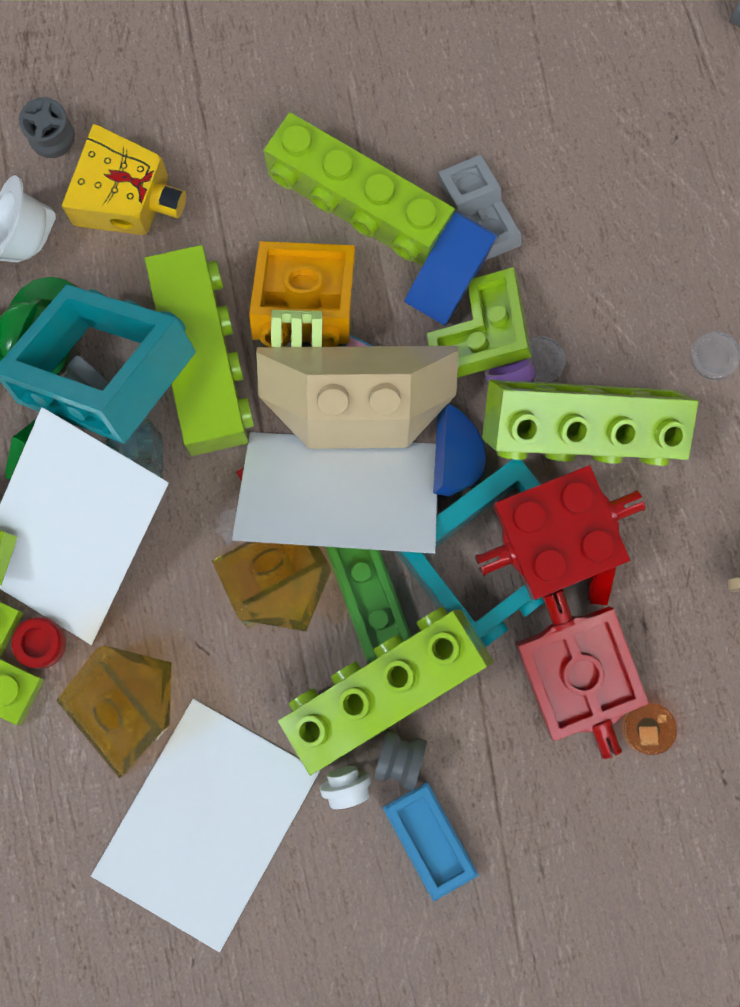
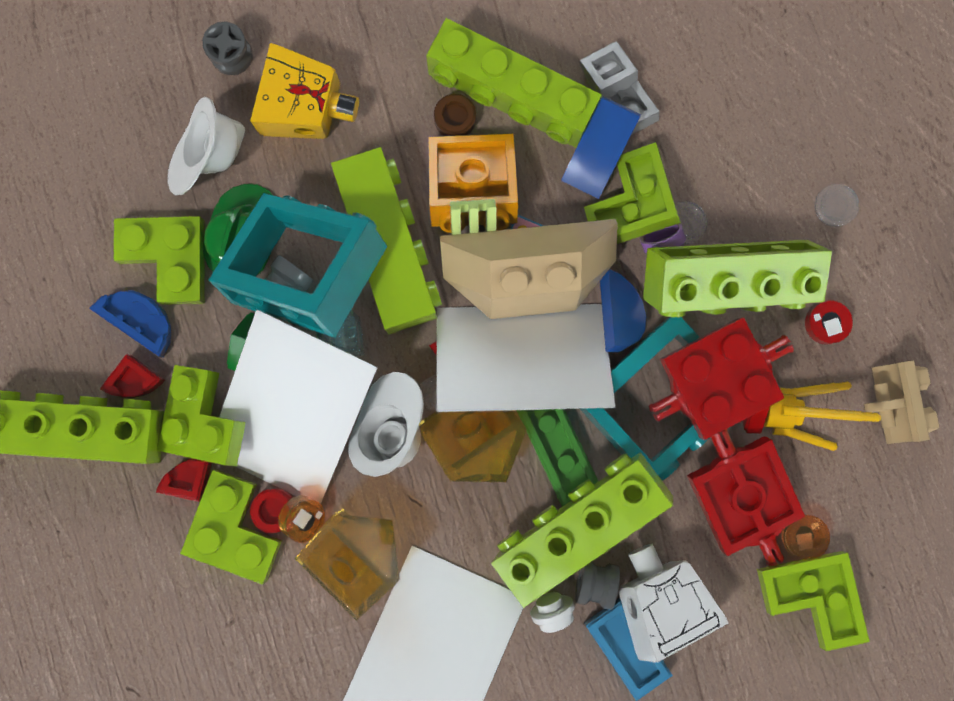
camera: 10 degrees left, 5 degrees up
(67, 652) = (301, 518): none -> clear orange tile
(177, 558) = (387, 425): none -> white piece
(292, 220) = (455, 115): none -> reddish brown tile
(477, 789) = (666, 606): none -> white torso
(638, 581) = (792, 411): none -> yellow plant
(669, 790) = (824, 586): none -> lime plate
(696, 486) = (828, 322): none -> red tile

